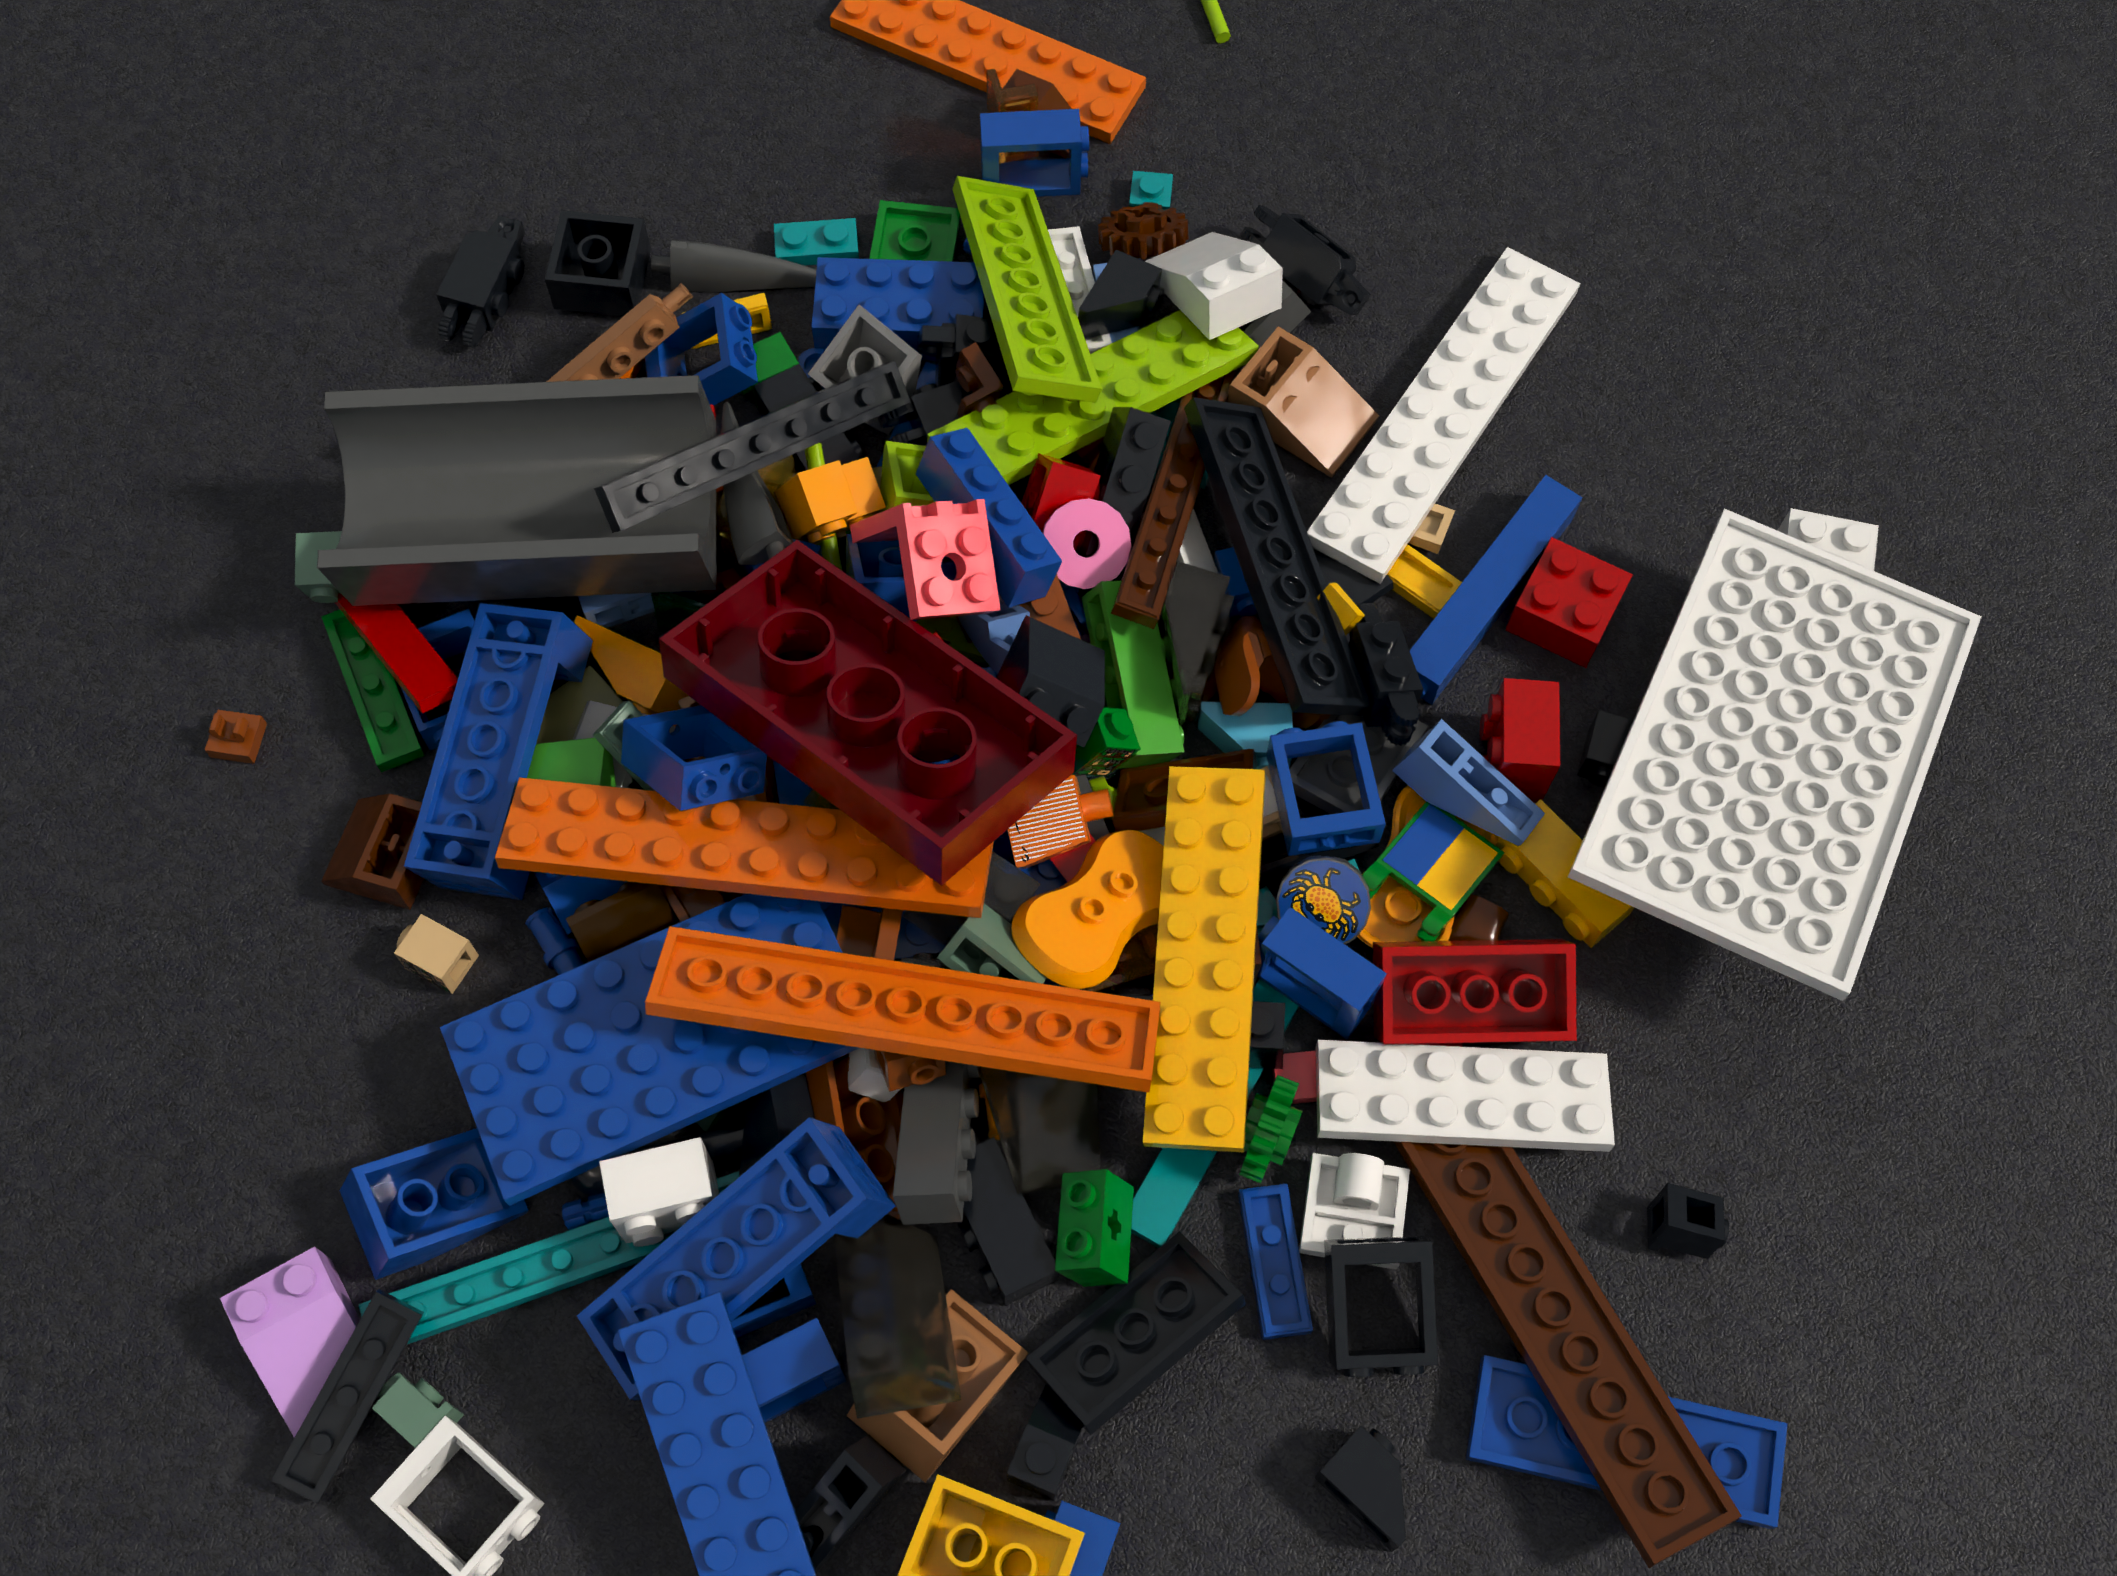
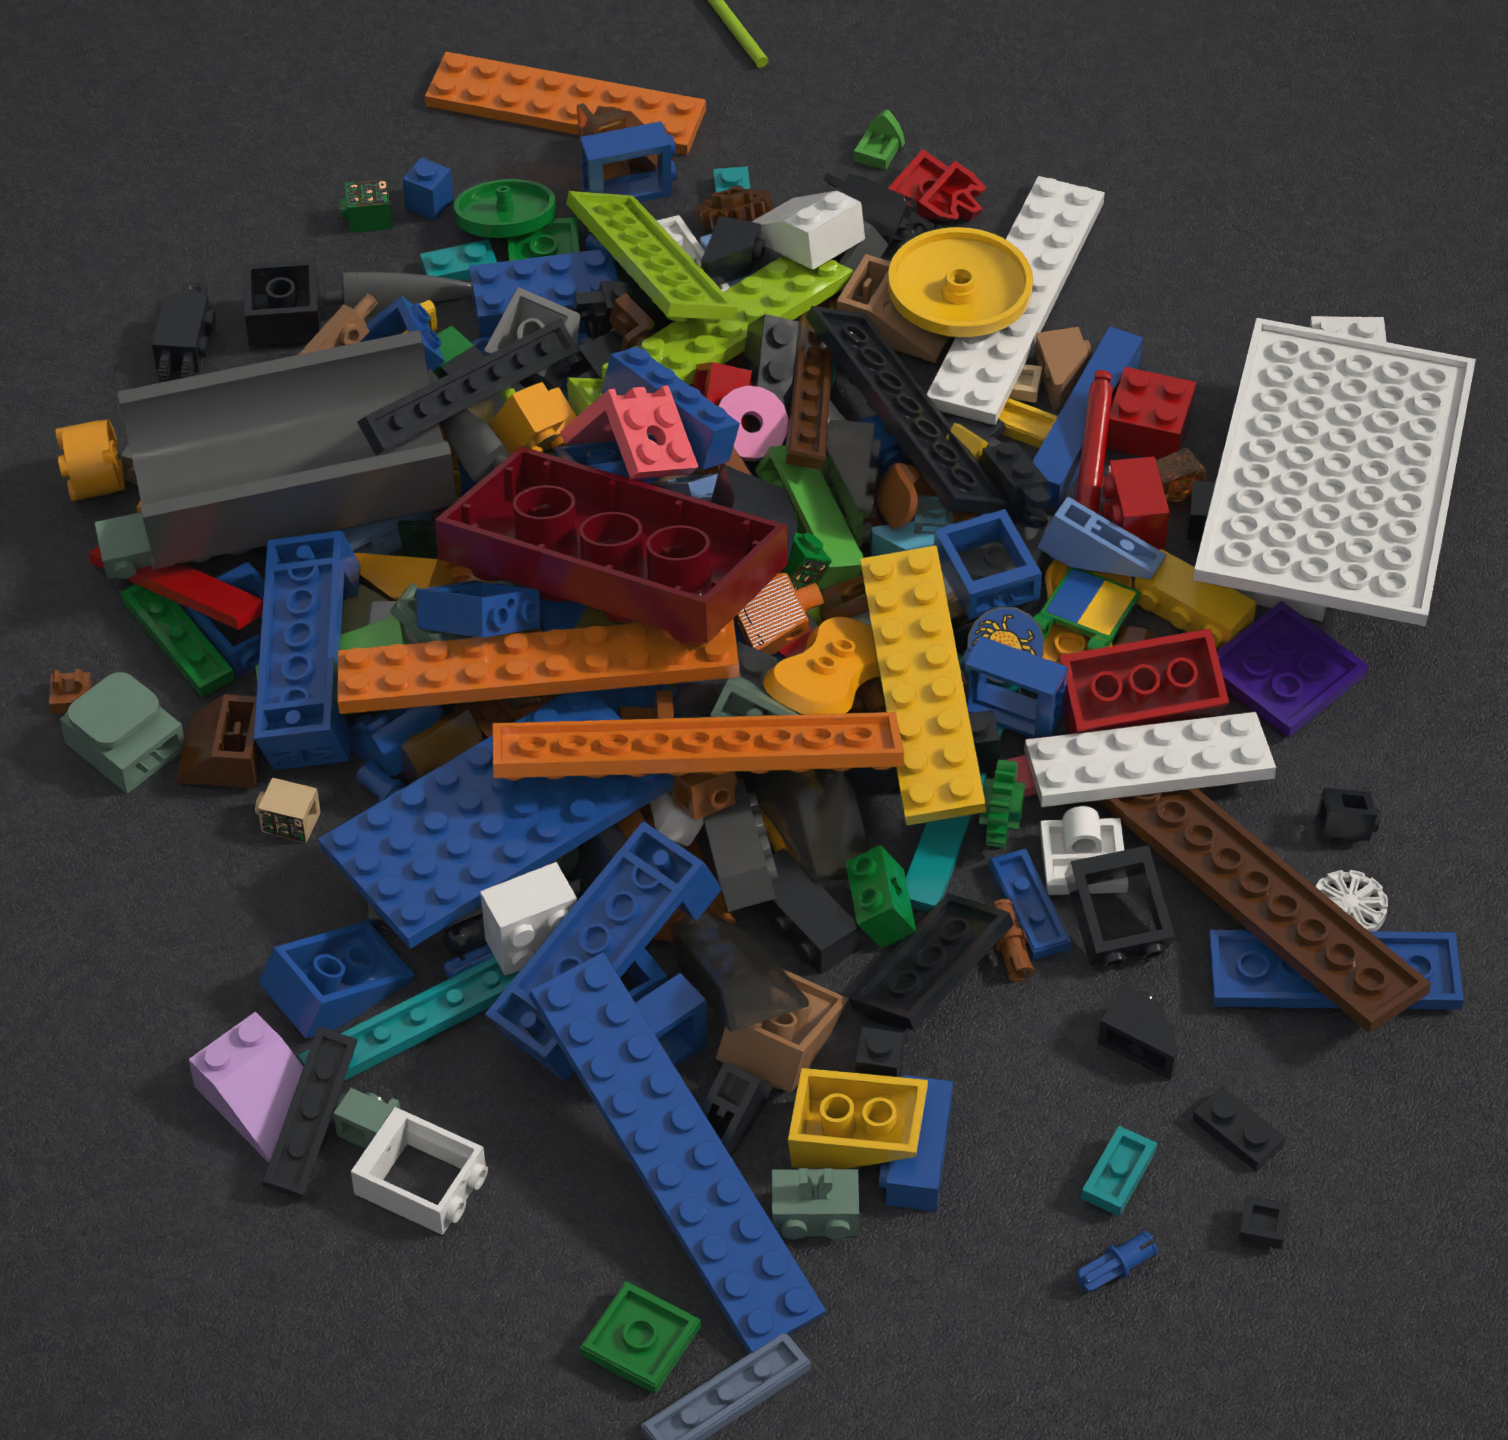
camera: 10 degrees left, 15 degrees down
(273, 808) = (122, 730): none -> sand green brick
(312, 438) = (90, 459): none -> light orange brick
(729, 150) = (367, 206): none -> green brick
(801, 140) = (428, 189): none -> blue brick
(882, 182) = (504, 208): none -> green piece
(1241, 1327) = (1013, 946): none -> dark orange pin
(1272, 704) = (931, 515): none -> clear light blue plate
(1333, 168) = (880, 141): none -> bright green tile
(1380, 388) = (960, 282): none -> yellow dish
(1387, 245) = (940, 190): none -> red plate
(1481, 508) = (1063, 361): none -> medium nougat slope
(1490, 645) = (1095, 441): none -> red piece
(1584, 693) = (1177, 474): none -> clear orange brick
(1657, 994) = (1287, 668): none -> dark purple plate
(1665, 1345) = (1356, 902): none -> white wheel

